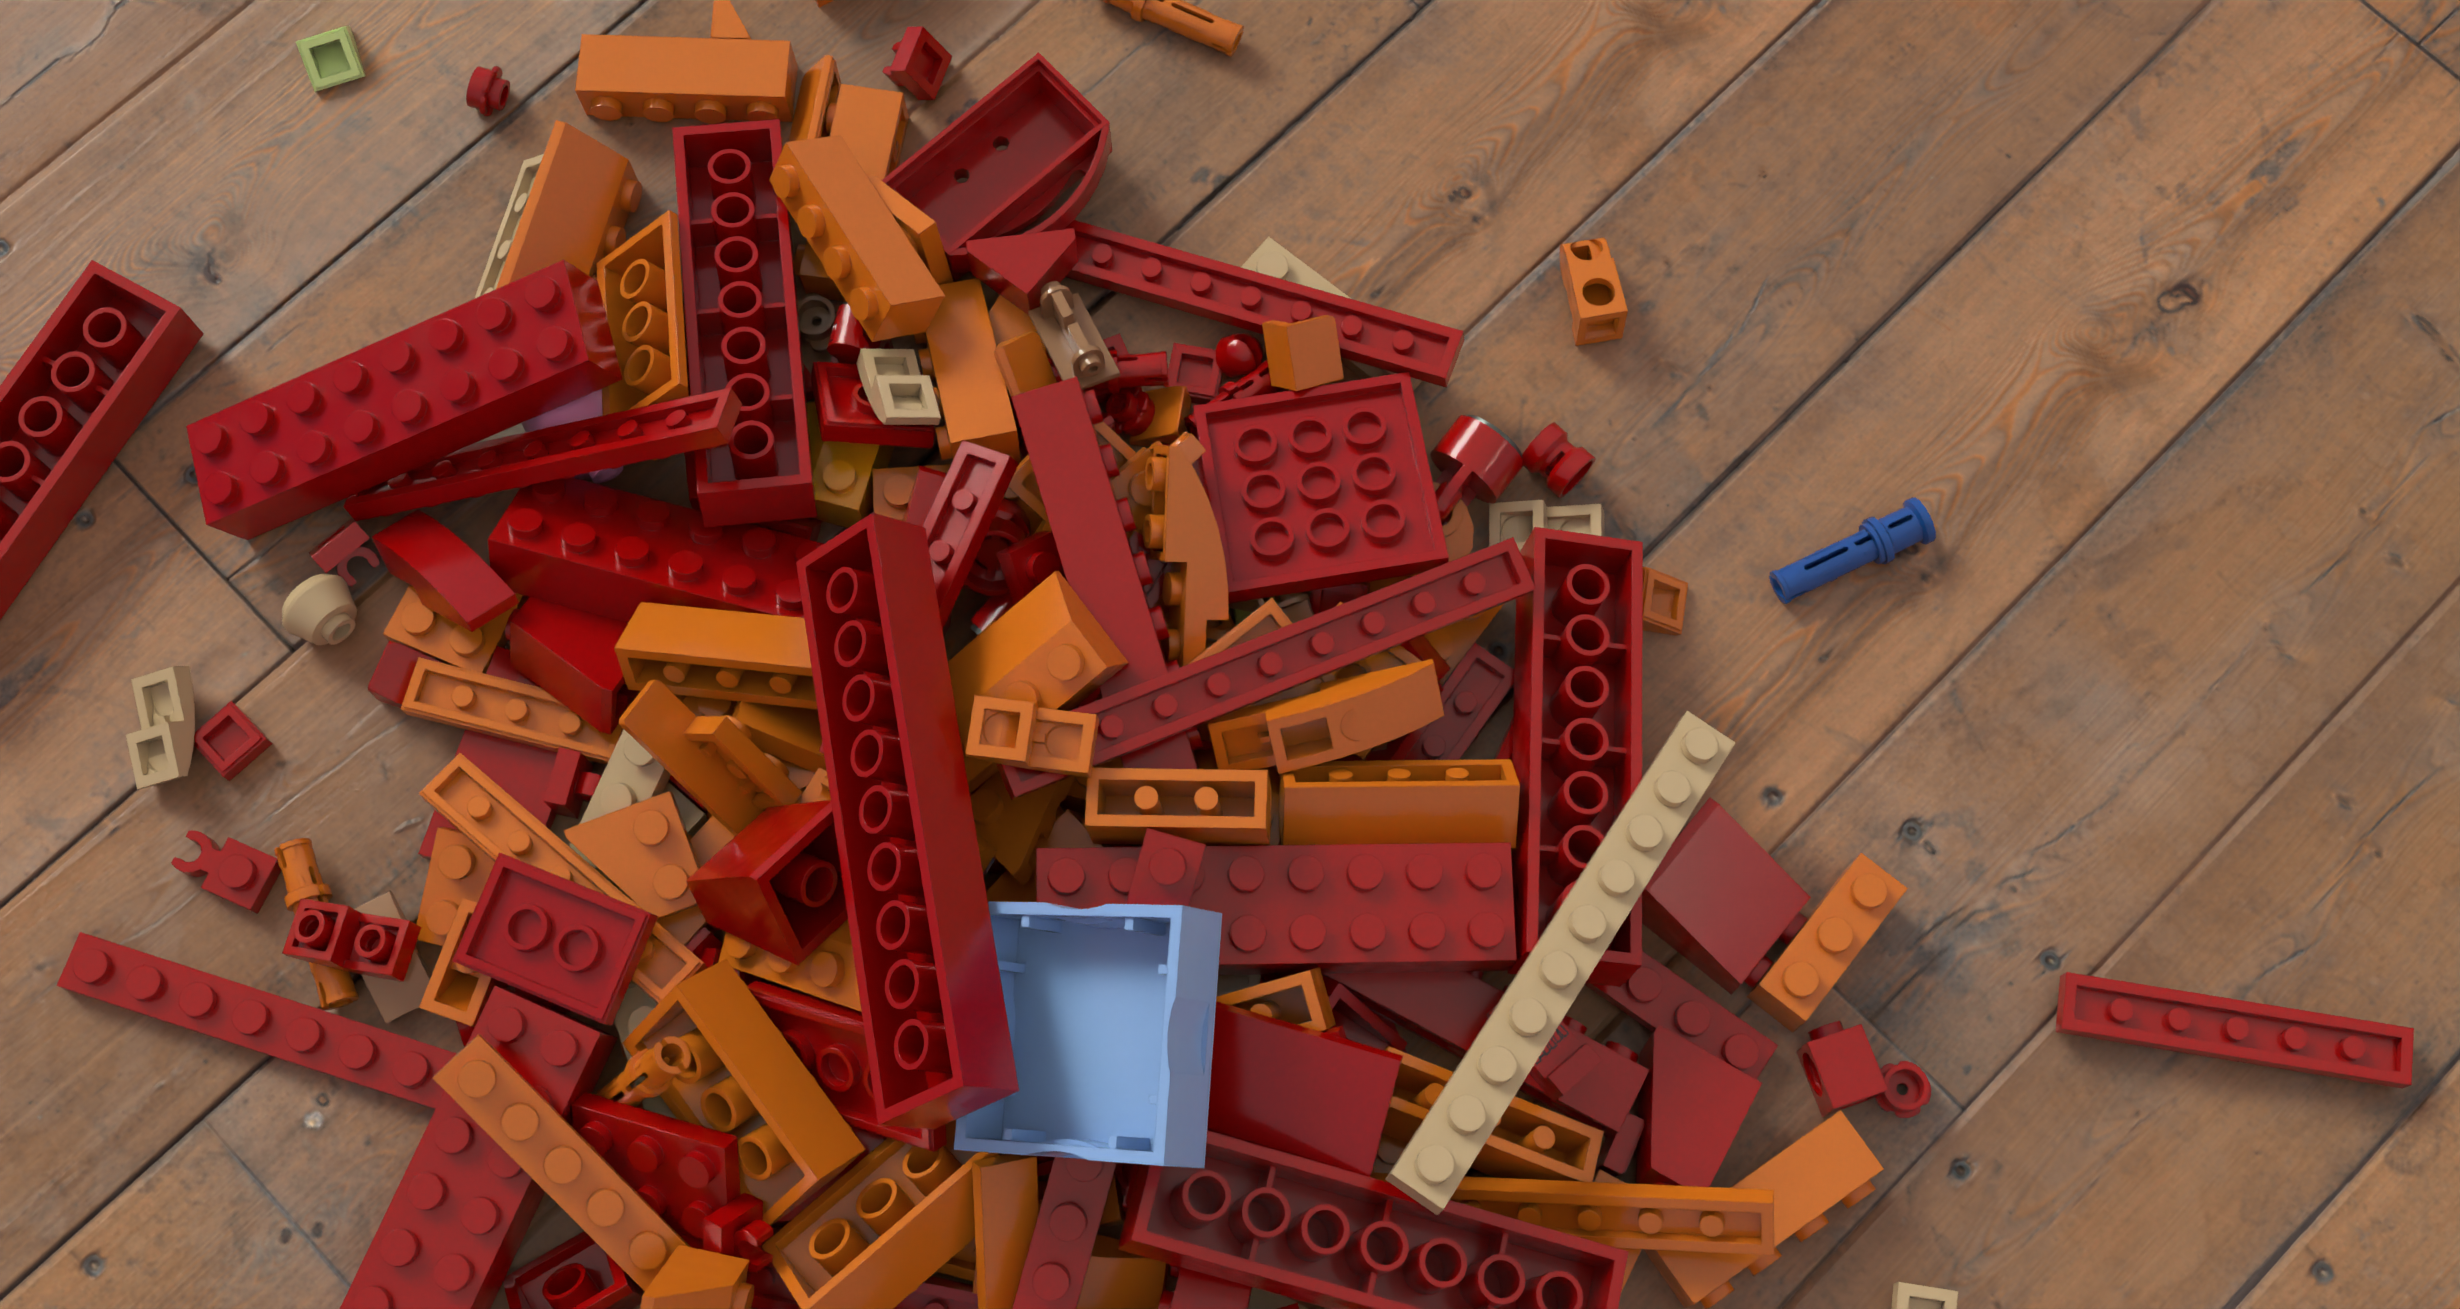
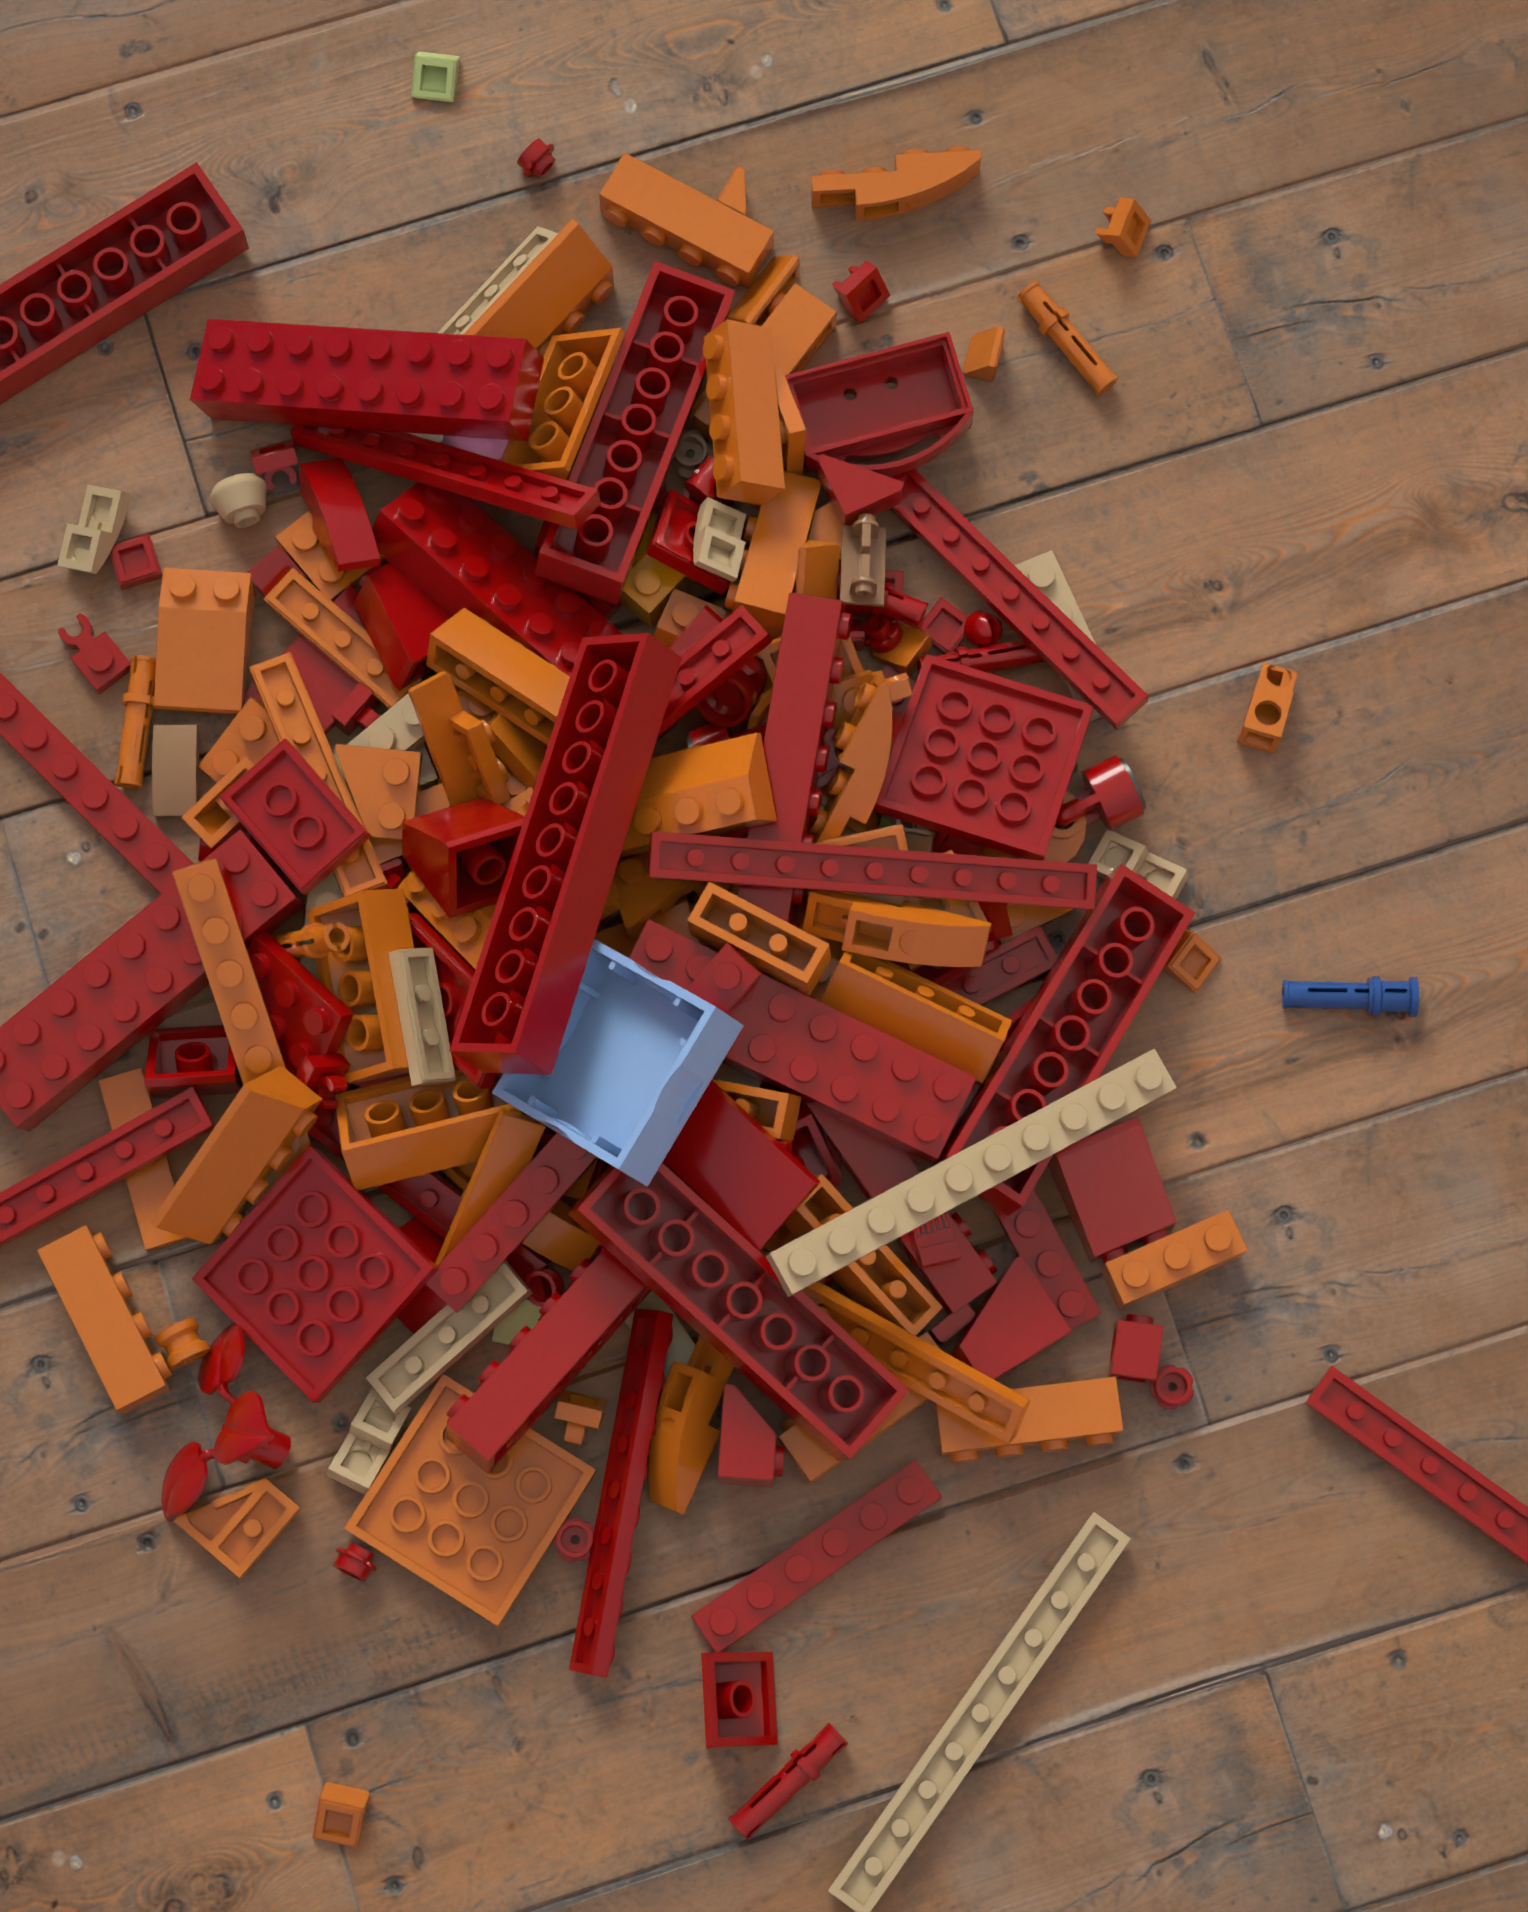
camera: 25 degrees right, 5 degrees up
(351, 789) = (203, 640): none -> orange slope
(351, 940) = (157, 747): red slope -> none
(822, 1099) = (422, 1016): none -> tan tile
(1029, 563) = (745, 716): red plate -> none
(1032, 737) = (681, 842): orange slope -> none
(1087, 66) = (984, 354): none -> orange slope
(1303, 352) = (1025, 654): orange panel -> none
(1557, 460) = (1172, 821): red wheel -> none

